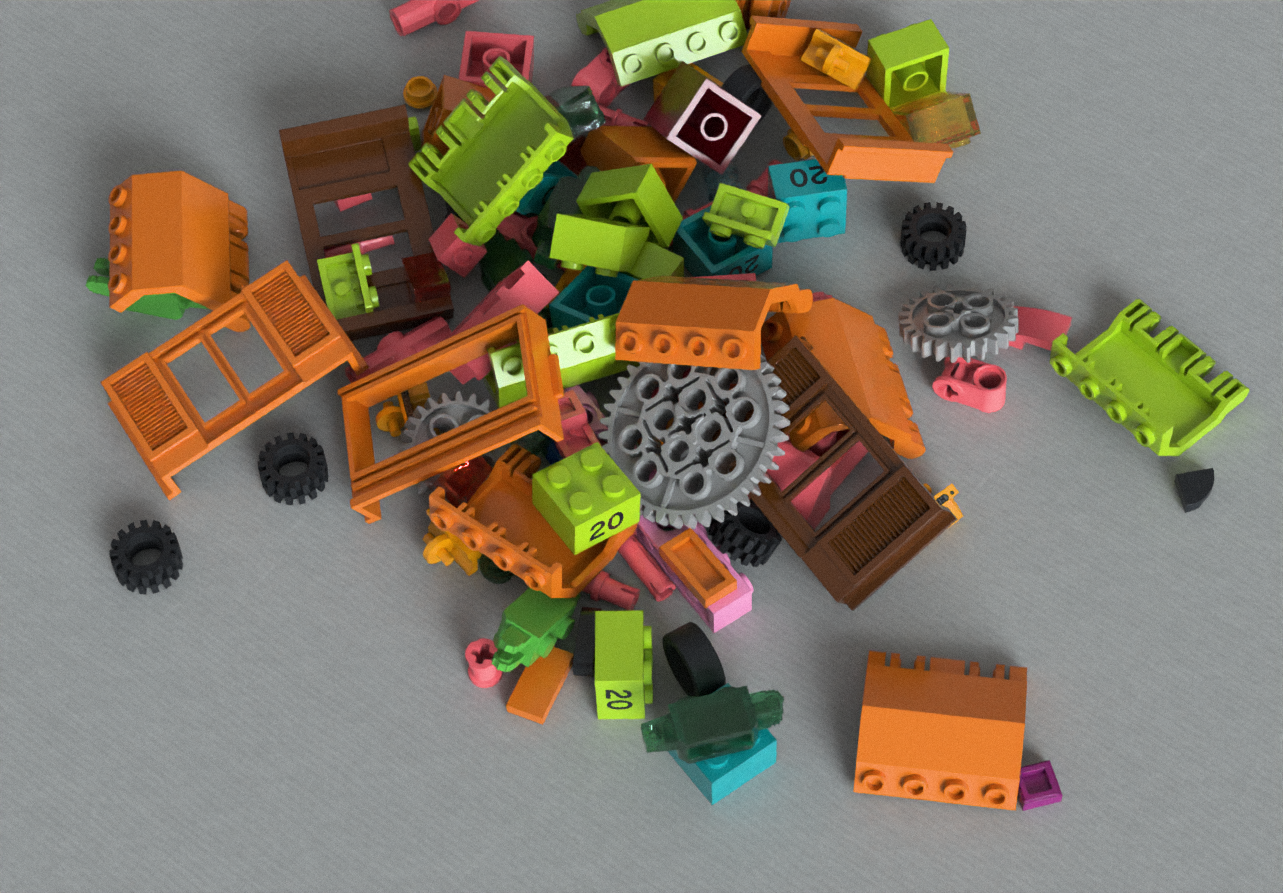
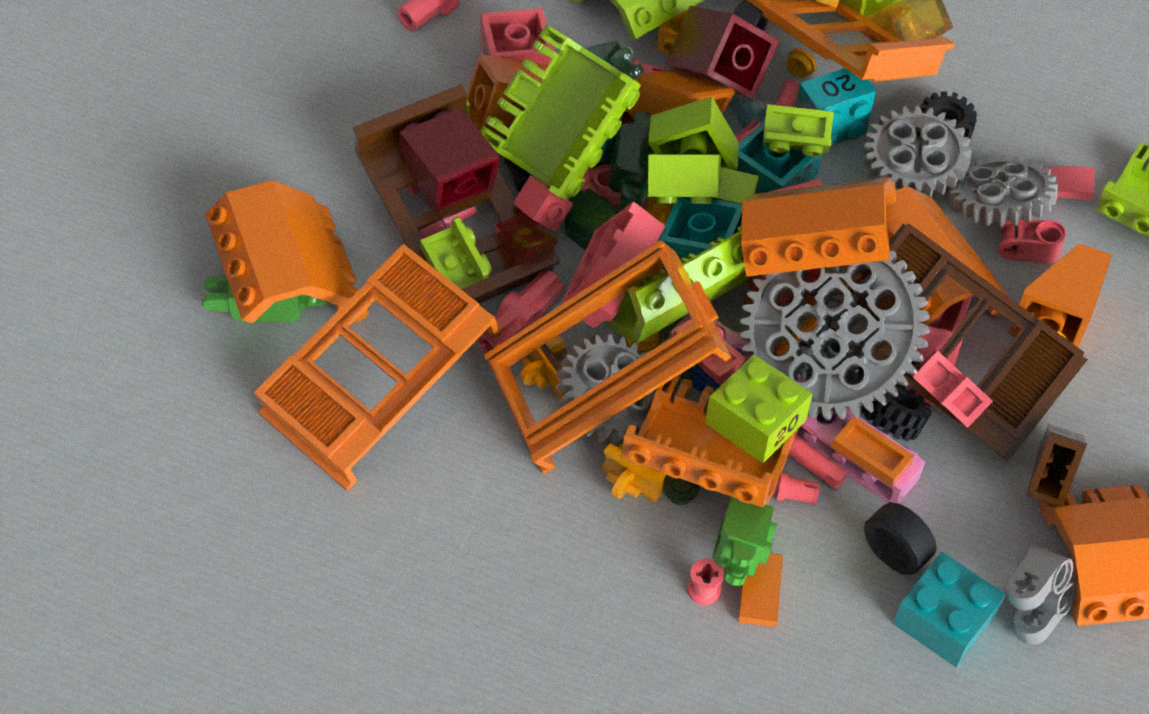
camera: 20 degrees left, 0 degrees up
(151, 574) = (344, 531): black tyre -> none
(293, 486) = (458, 420): black tyre -> none
(369, 181) = (448, 158): none -> dark red slope
(419, 92) = (449, 75): light orange plate -> none
(461, 481) = (636, 414): clear red slope -> none
(585, 643) = (791, 540): black beam -> none
(600, 78) = (609, 29): coral piece -> none
(623, 664) = (837, 555): lime brick -> none
(713, 723) = (954, 592): clear green hinge -> none
(797, 518) = (951, 388): none -> coral slope
(823, 740) = (1046, 593): none -> light grey piece
(886, 619) = (1056, 465): none -> reddish brown slope
(900, 276) = (942, 151): none -> light grey gear
(972, 450) = (1067, 292): none -> orange slope

